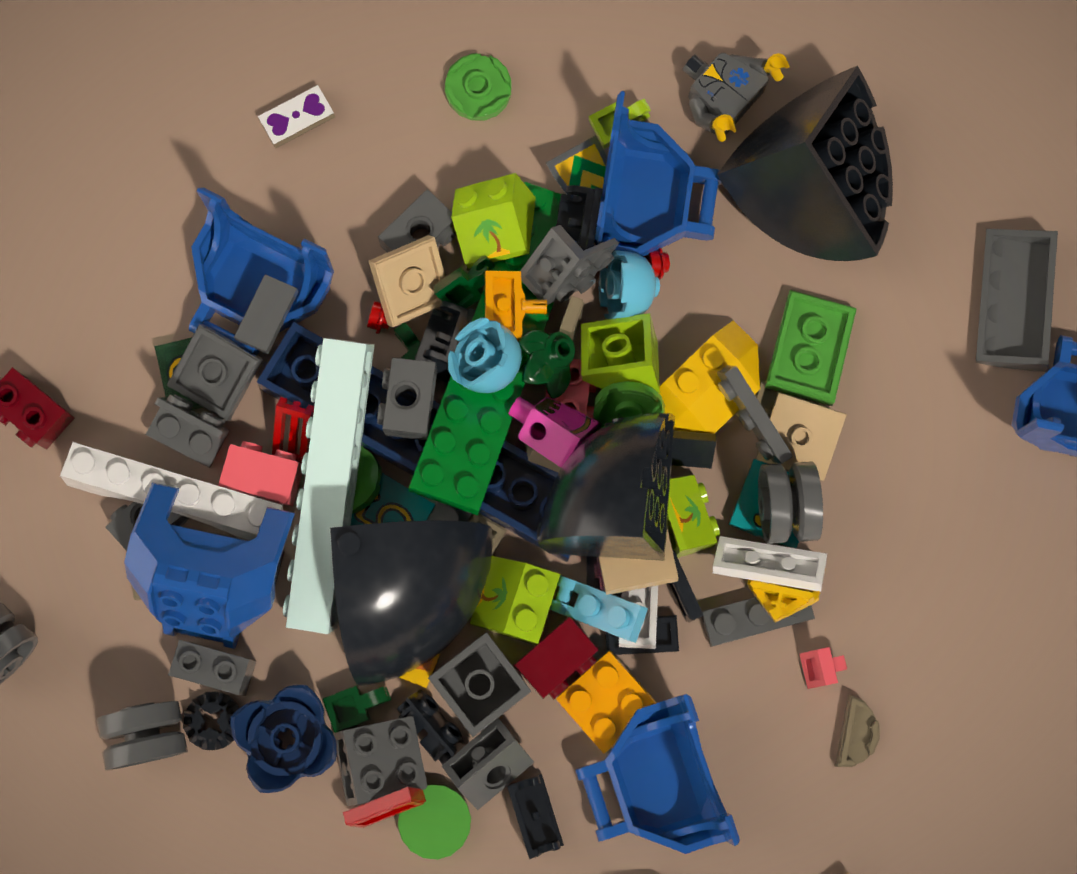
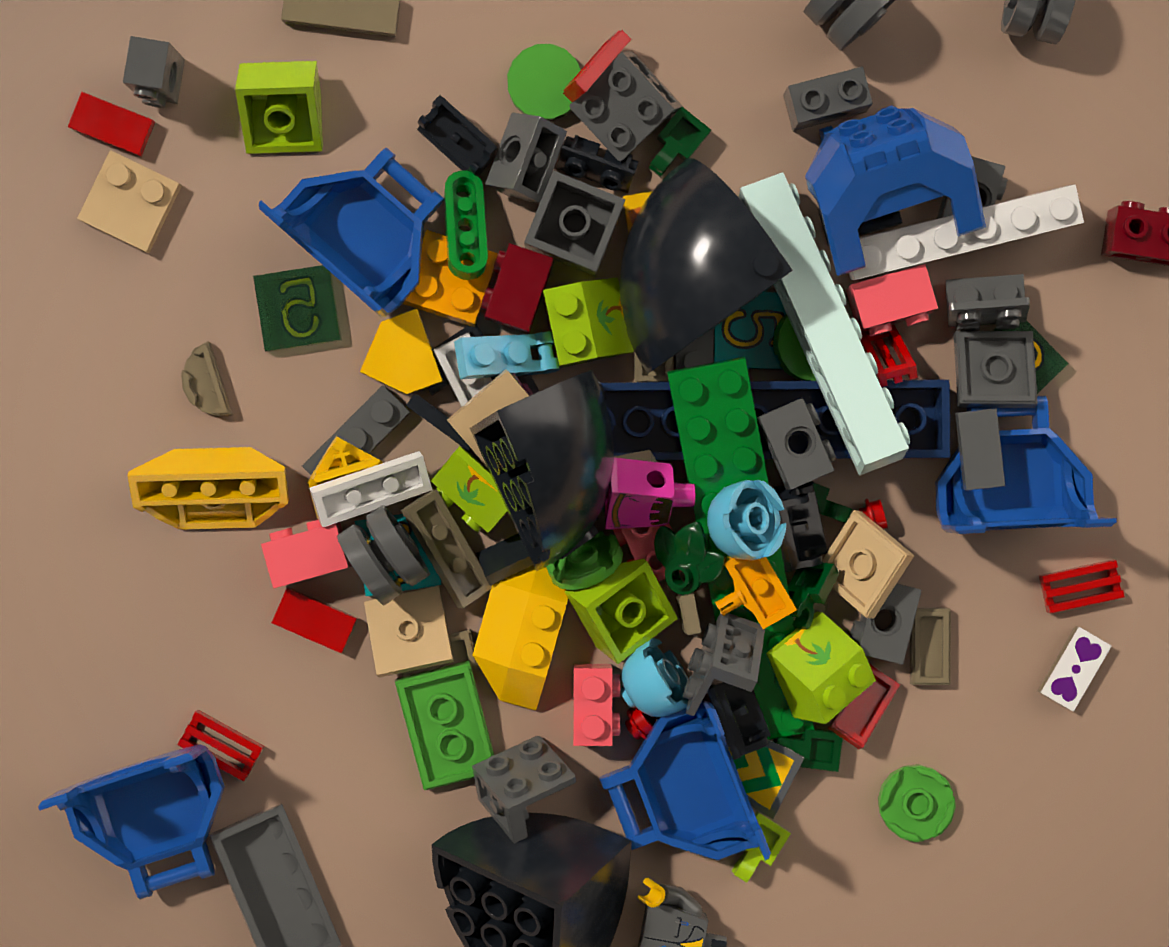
camera: 155 degrees right, 10 degrees up
(194, 720) = (783, 61): black gear -> none
(224, 164) = (1113, 580): none -> red tile
(257, 731) = (723, 44): dark blue brick -> none
(396, 193) = (930, 647): none -> dark tan tile
(481, 168) = (862, 715): none -> red tile
(532, 168) = (818, 747): none -> dark green plate
(560, 746) = (465, 212): none -> green plate
(682, 660) = (402, 355): none -> yellow slope
(686, 296) = (592, 712): none -> coral brick
(734, 483) = (446, 548): none -> dark tan plate
(747, 751) = (297, 308): none -> clear green tile
(753, 415) = (465, 619): dark grey plate -> none
(777, 269) = (517, 780): none -> dark grey bracket
(821, 668) = (271, 423): coral tile -> none
(854, 544) = (304, 554): none -> coral brick
(871, 489) = (314, 620): none -> red tile
(901, 643) = (210, 488): none -> yellow wedge
(988, 440) = (225, 765): none -> red tile

